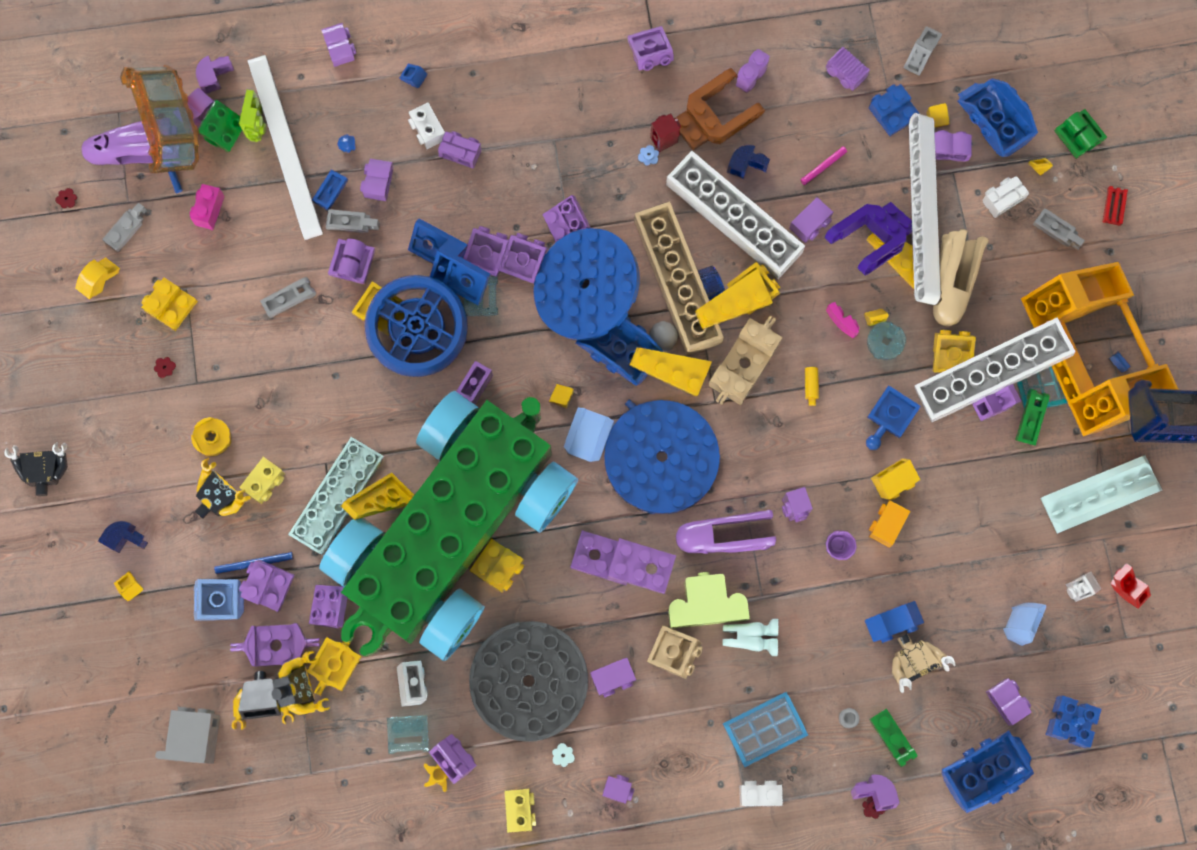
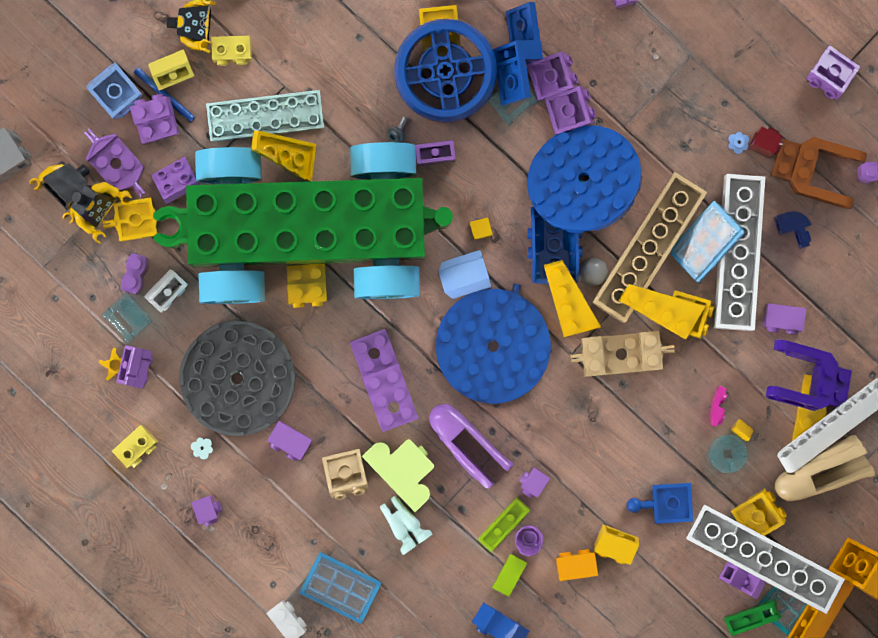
camera: 50 degrees right, 10 degrees up
(128, 586) = (72, 13): yellow slope -> none
(238, 540) = (171, 70): none -> light yellow brick
(380, 703) = (133, 279): none -> medium lavender brick
(433, 400) = (397, 133): none -> flat silver plate
(565, 218) = (629, 119): medium lavender plate -> none
(708, 230) = (707, 241): none -> clear piece
(711, 281) = (665, 277): clear blue brick -> none
(811, 385) = (644, 421): yellow cylinder -> none
(812, 557) = (504, 524): none -> lime tile
(825, 164) = (841, 292): dark pink bar -> none
(856, 583) = (509, 575): none -> lime tile

